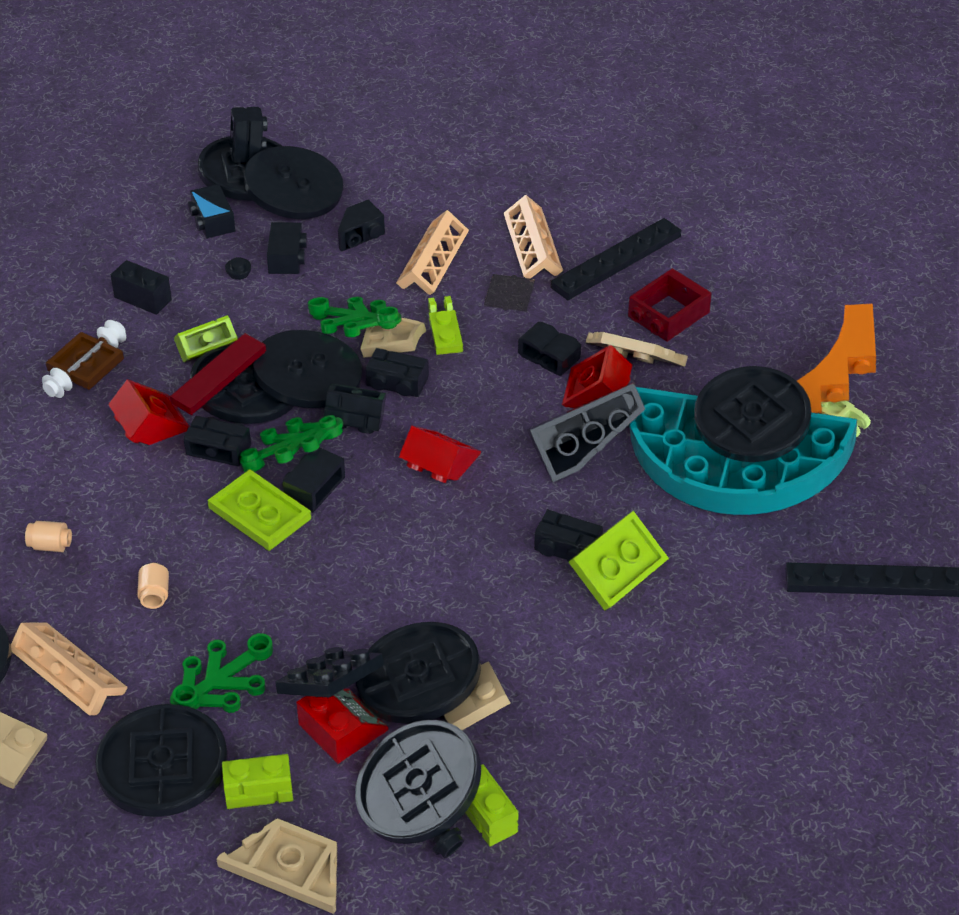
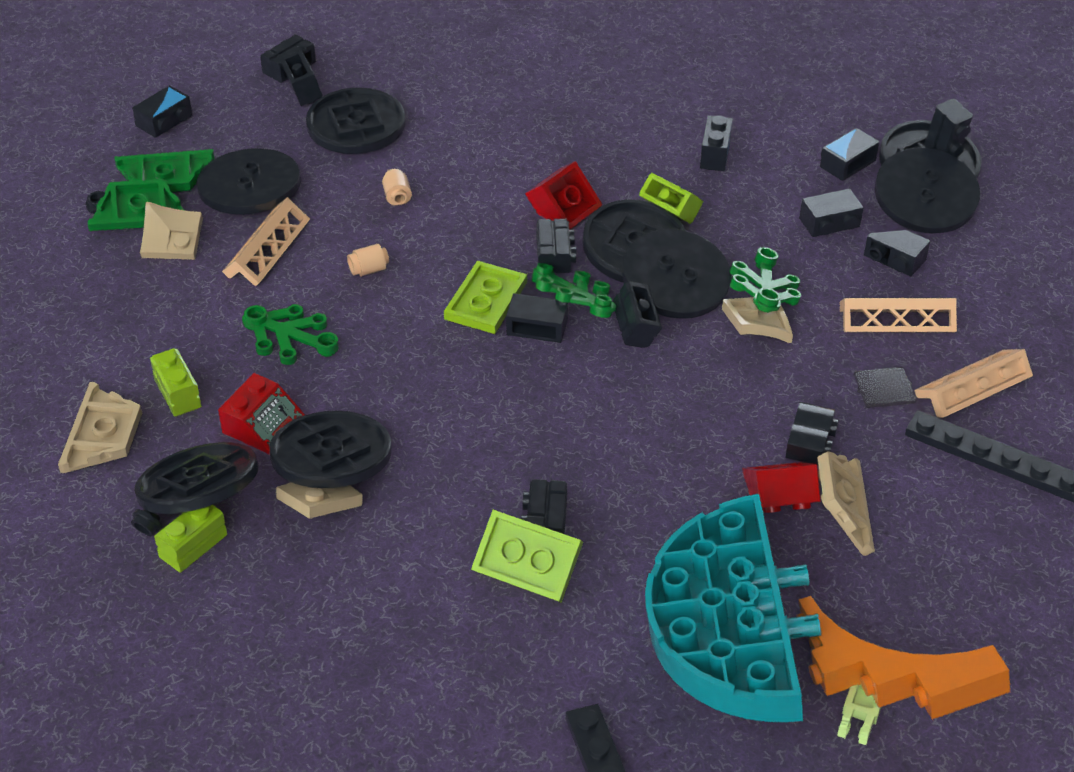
camera: 70 degrees right, 0 degrees up
(85, 359) = (610, 143): reddish brown plate -> none
(161, 760) = (190, 317): black plate -> none
(218, 374) = (620, 213): dark red tile -> none
(238, 268) = (788, 195): black plate -> none
(329, 672) = (293, 384): black plate -> none
(397, 372) = (706, 332): black brick -> none
(437, 454) = (615, 390): red slope -> none
(445, 327) = (800, 351): lime hinge -> none
(579, 434) = (683, 478): black wedge -> none
(669, 284) = (945, 494): dark red window -> none
(752, 414) = (756, 597): black plate -> none

